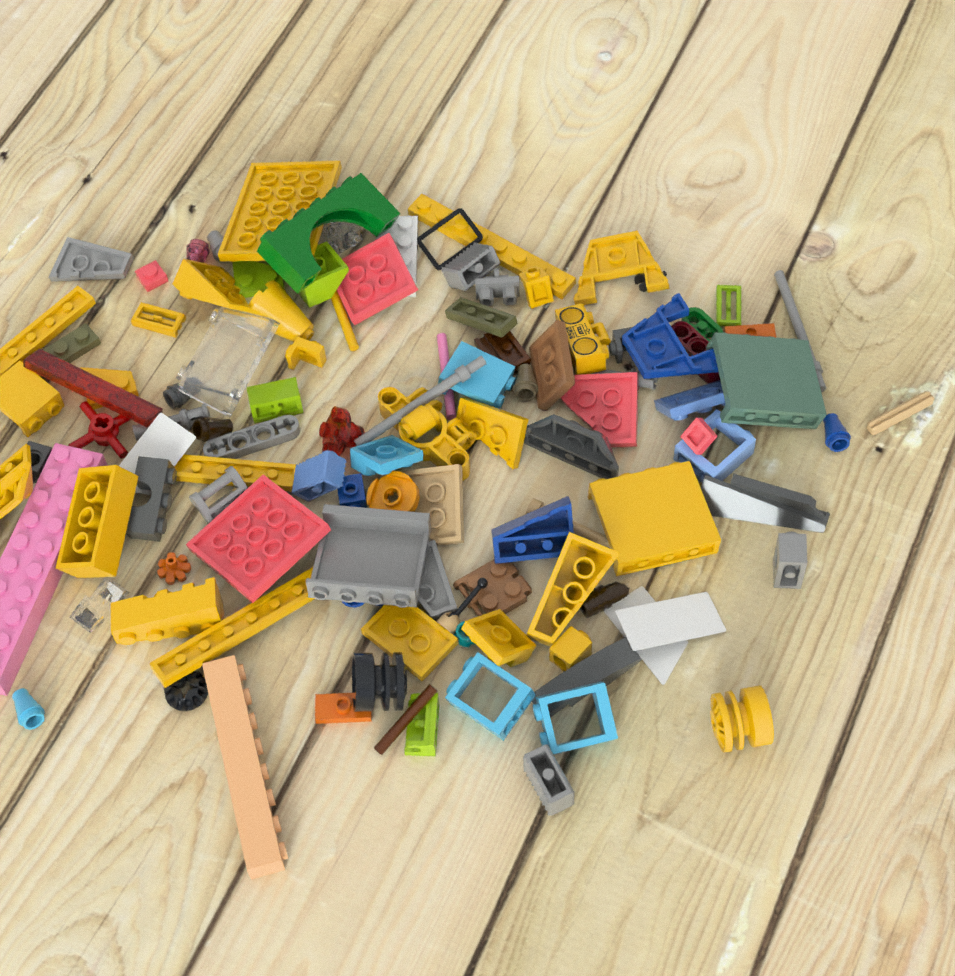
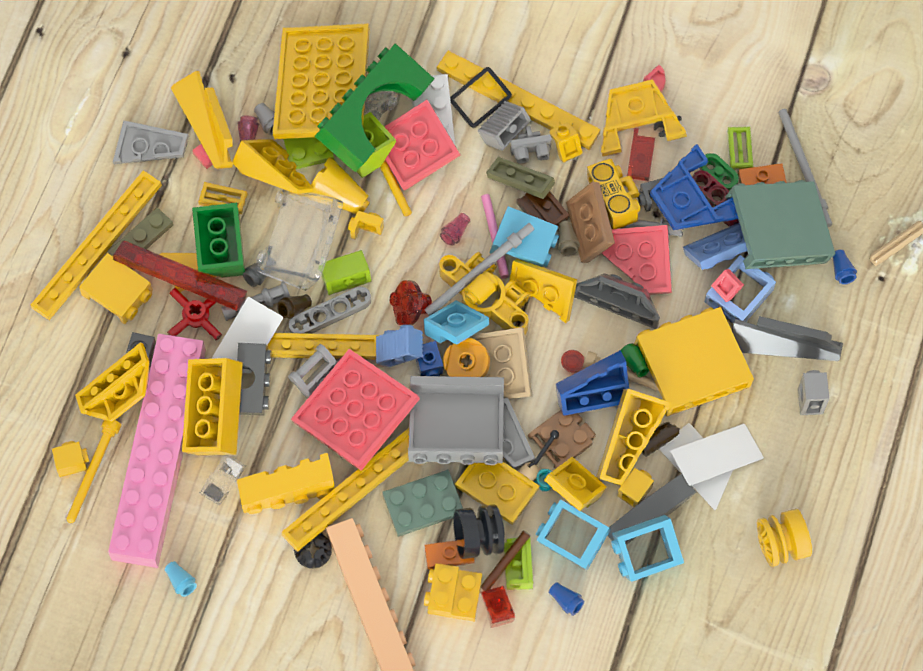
camera: 10 degrees left, 10 degrees up
(142, 356) = (219, 240): none -> green slope
(153, 240) = (205, 118): none -> yellow wedge
(173, 568) = (281, 440): orange plant -> none
(319, 648) = (422, 502): none -> sand green plate
(340, 751) = (453, 592): none -> yellow plate
(389, 773) = (498, 606): none -> clear red slope
(401, 366) = (454, 230): none -> clear pink cone
(475, 771) = (568, 600): none -> blue cone
(514, 508) = (572, 361): none -> clear red plate
(548, 780) = (630, 603): light grey brick -> none
(585, 511) = (635, 359): none -> green cone
(616, 306) = (641, 156): none -> clear red panel
(645, 232) = (658, 77): none -> coral tile

